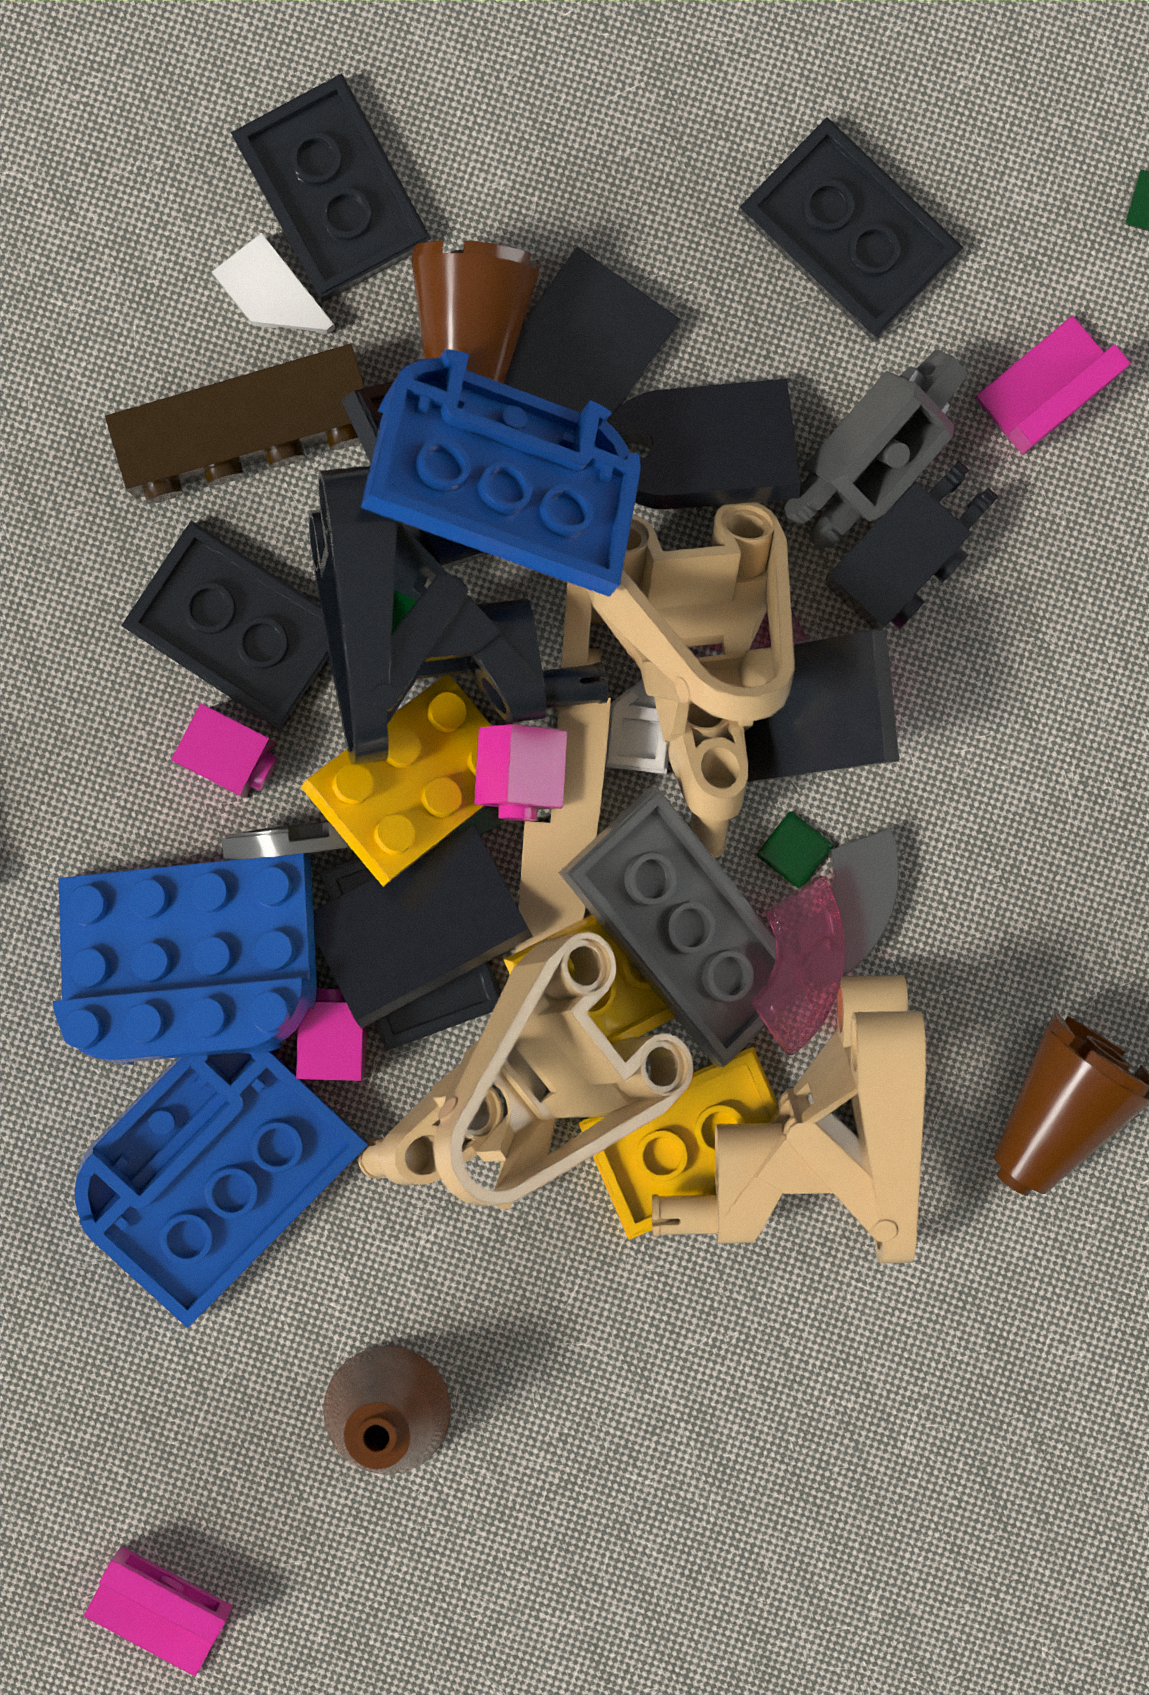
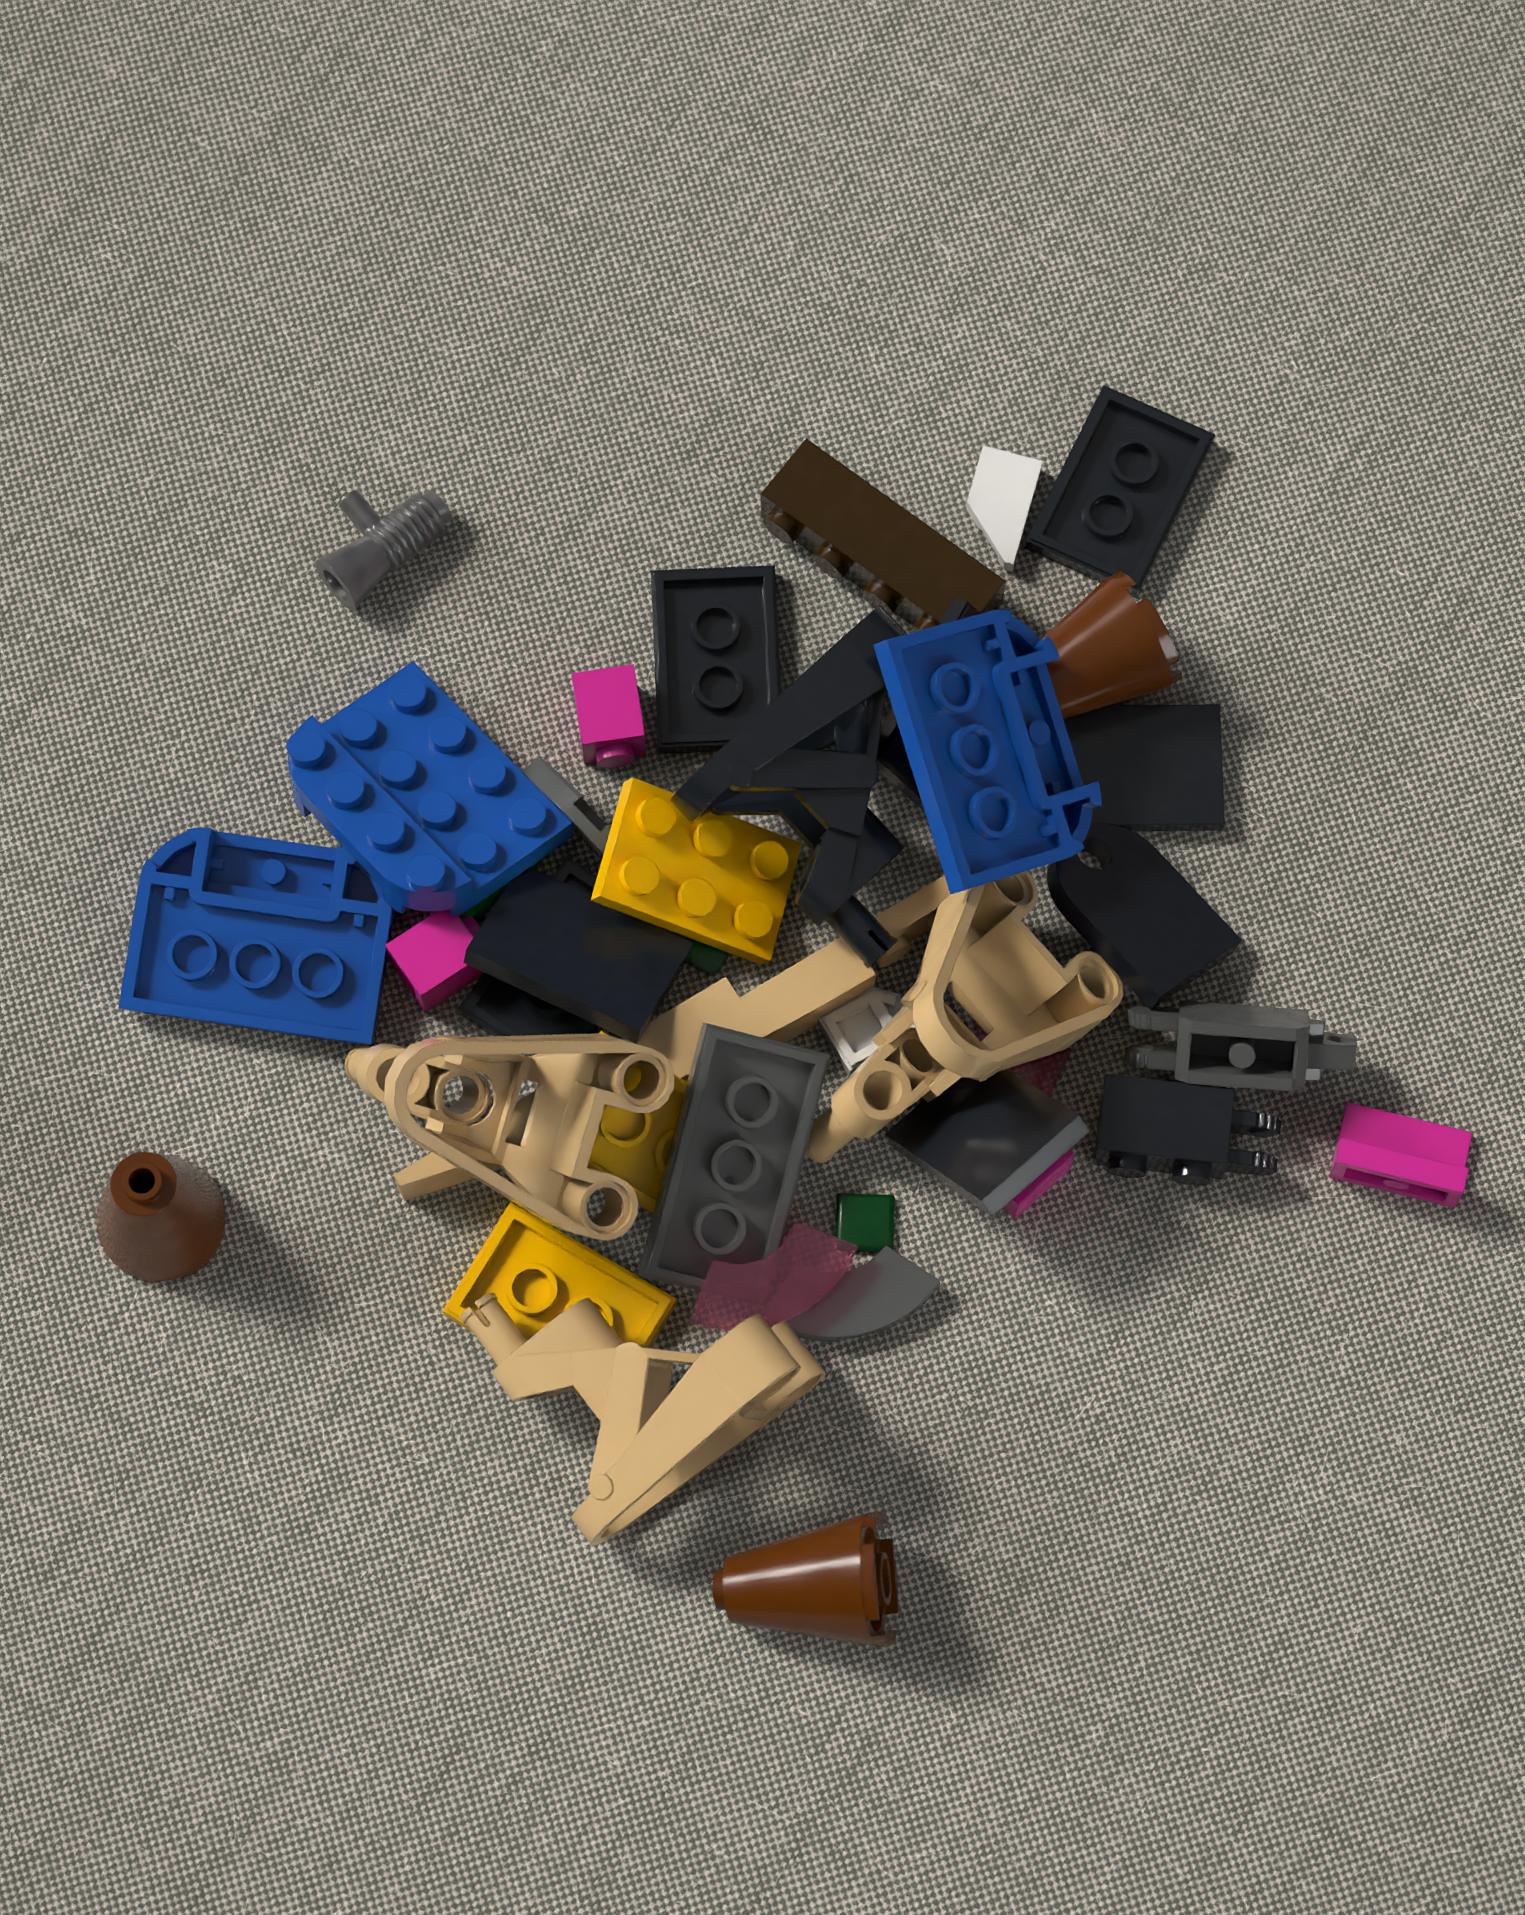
camera: 55 degrees right, 15 degrees down
(520, 770) = (764, 942): dark pink brick -> none
(850, 229) = (1402, 908): black tile -> none

